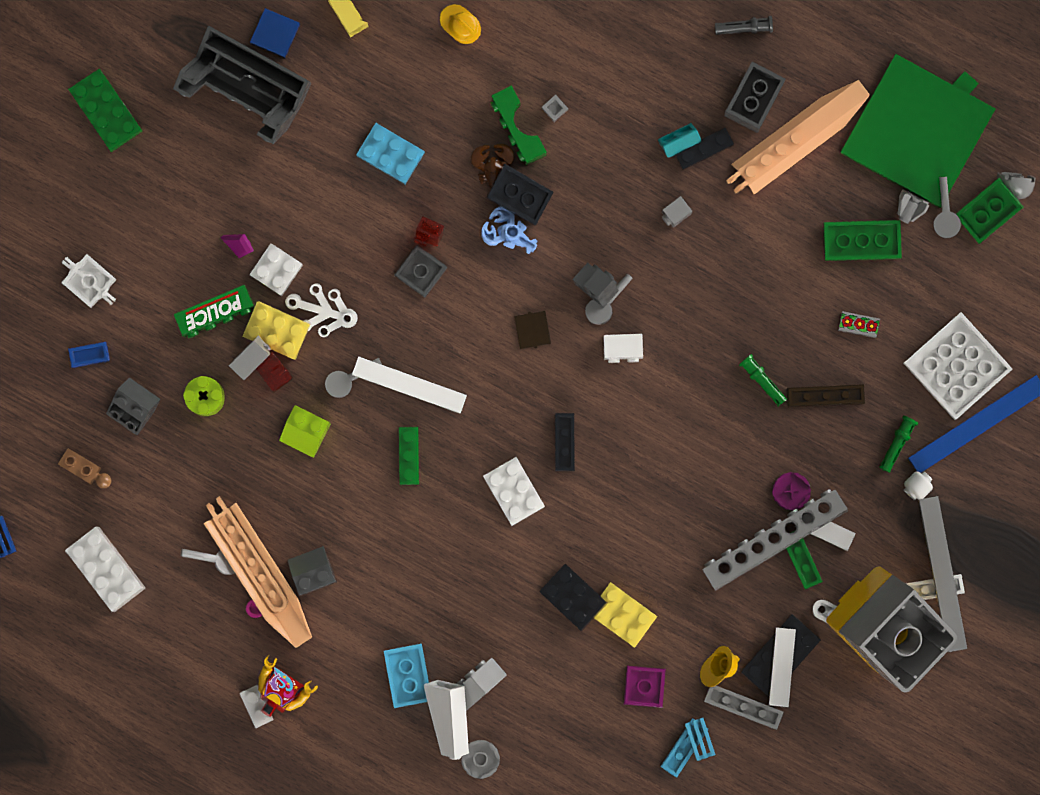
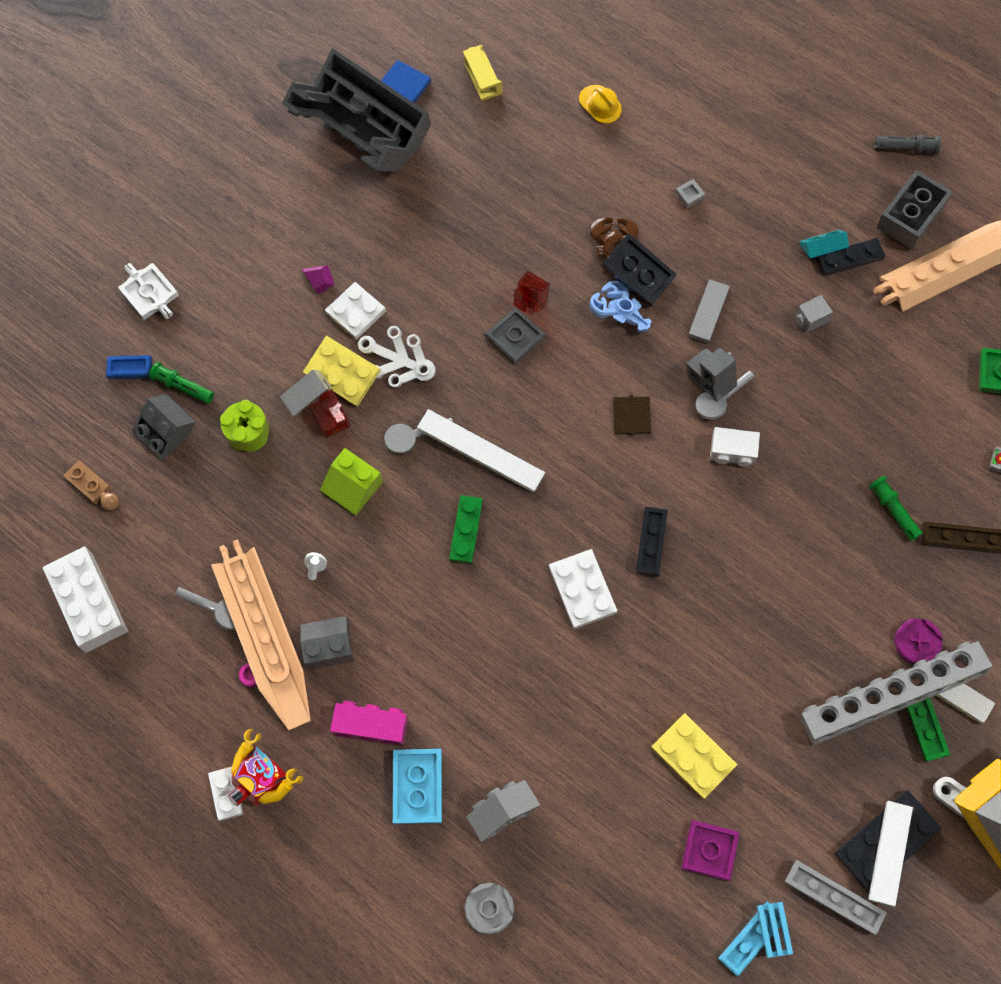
camera: 10 degrees right, 15 degrees down
(105, 110) = (209, 132): green plate -> none
(130, 361) = (172, 378): none -> green pin
(214, 311) = (276, 341): green brick -> none
(288, 505) = (315, 563): none -> white plate
(360, 632) = (369, 723): none -> dark pink brick
(390, 153) = (503, 214): medium azure plate -> none
(448, 717) = (459, 846): white slope -> none
(529, 147) = (656, 225): green arch -> none
(573, 597) = (636, 723): black plate -> none
(586, 221) = (708, 311): none -> light grey tile
(719, 666) = (809, 839): yellow piece -> none

